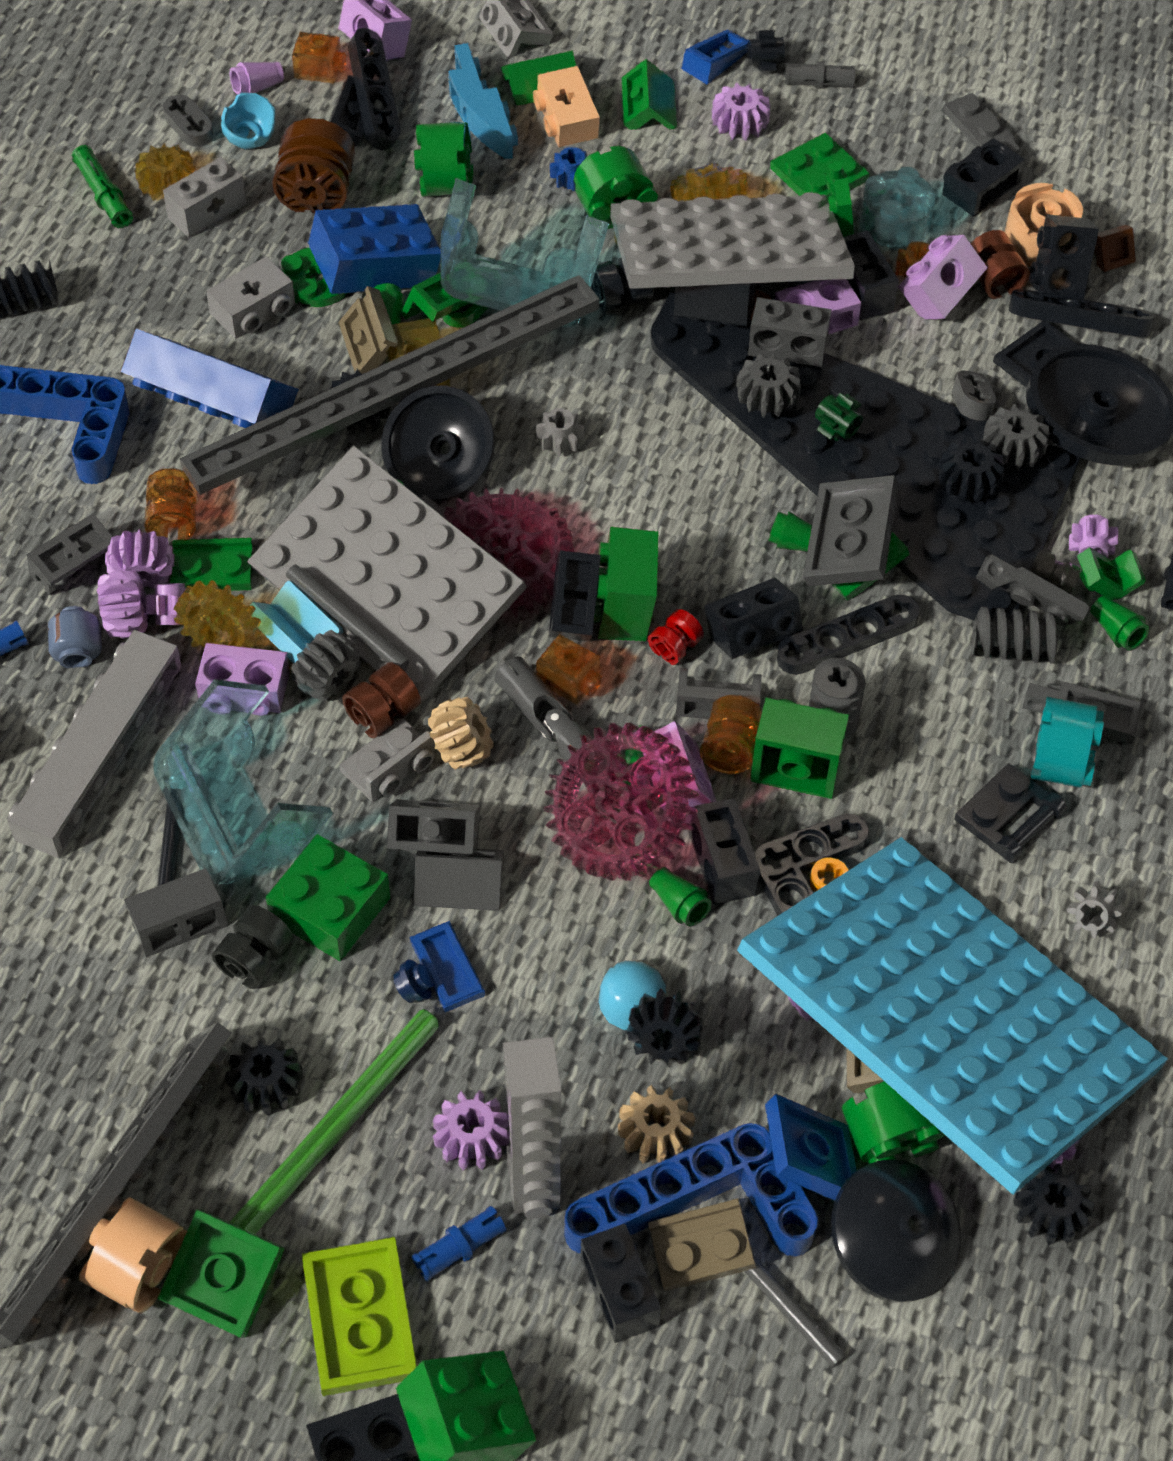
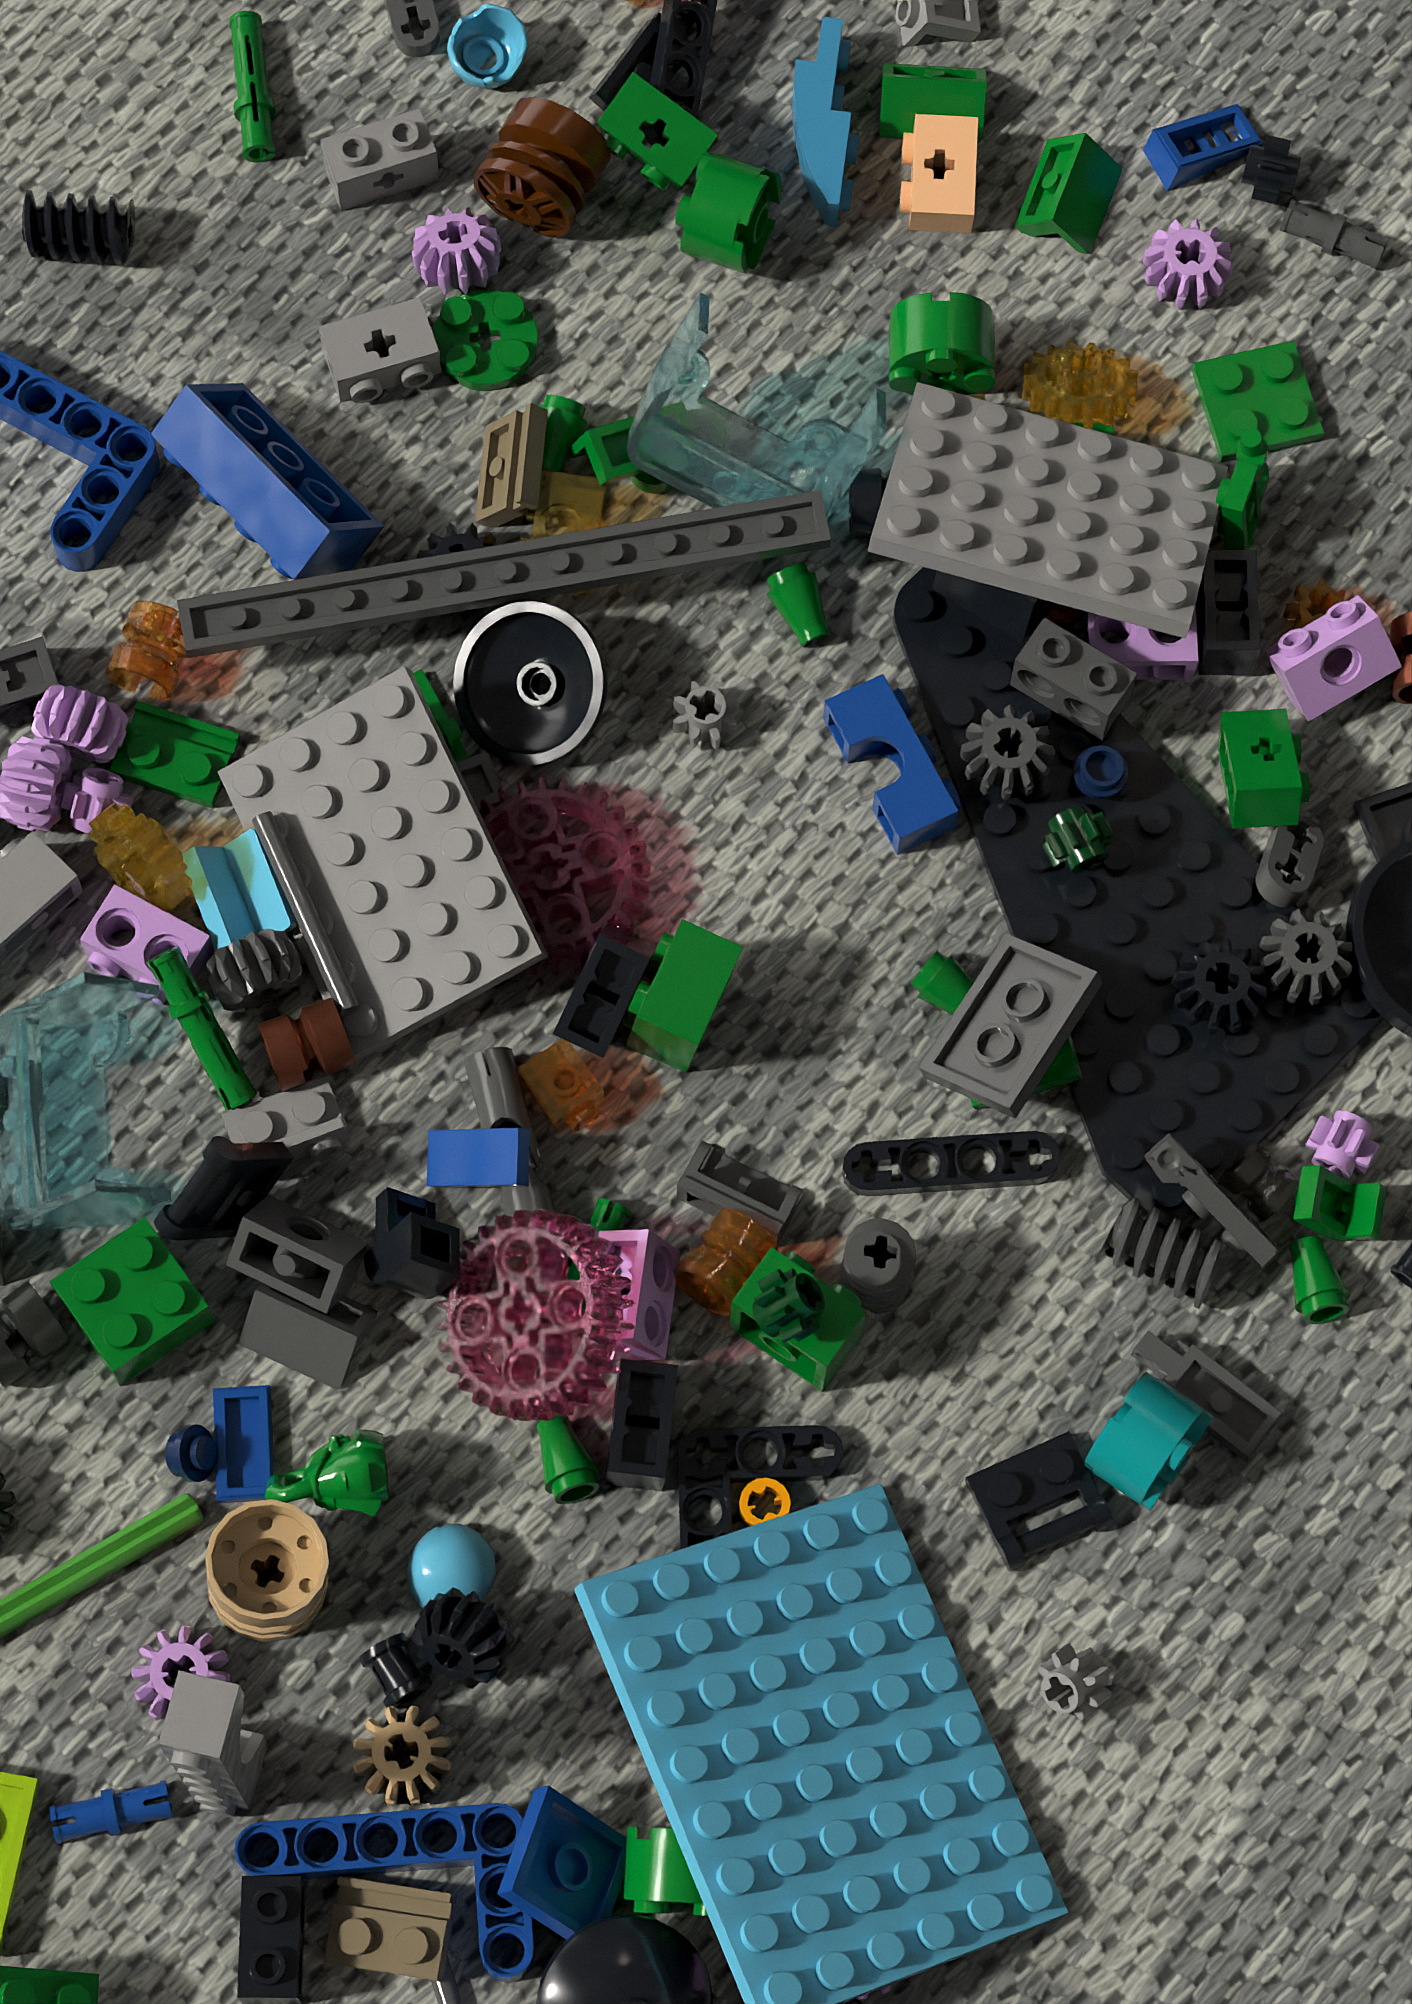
camera: 20 degrees right, 15 degrees up
(162, 168) = (330, 109): clear yellow gear -> none
(277, 230) = (456, 251): none -> lavender gear
(304, 709) = (196, 1017): none -> green pin
(366, 797) = (223, 1189): none -> black plate
(373, 247) = (570, 334): blue brick -> none
(394, 121) = (644, 105): none -> green brick
(460, 733) = (383, 1133): tan gear -> none
(495, 1010) = (251, 1541): none -> tan wheel
(515, 795) = (411, 1247): none -> black brick
(530, 949) = (339, 1475): none -> green piece
(533, 726) = (478, 1157): none -> blue tile
(565, 166) = (903, 267): blue gear -> none
(588, 352) = (799, 602): none -> green cone
(624, 1070) = (395, 1670): none -> black bush
(675, 402) = (876, 722): none -> blue arch
(678, 634) = (721, 1087): red wheel -> none
(754, 618) = (831, 1100): black brick -> none
(799, 719) = (788, 1305): none -> dark green gear
(831, 379) = (1100, 772): none -> dark blue plate
(897, 208) = (1322, 488): clear light blue brick -> none
(930, 349) = (1261, 768): none -> green brick

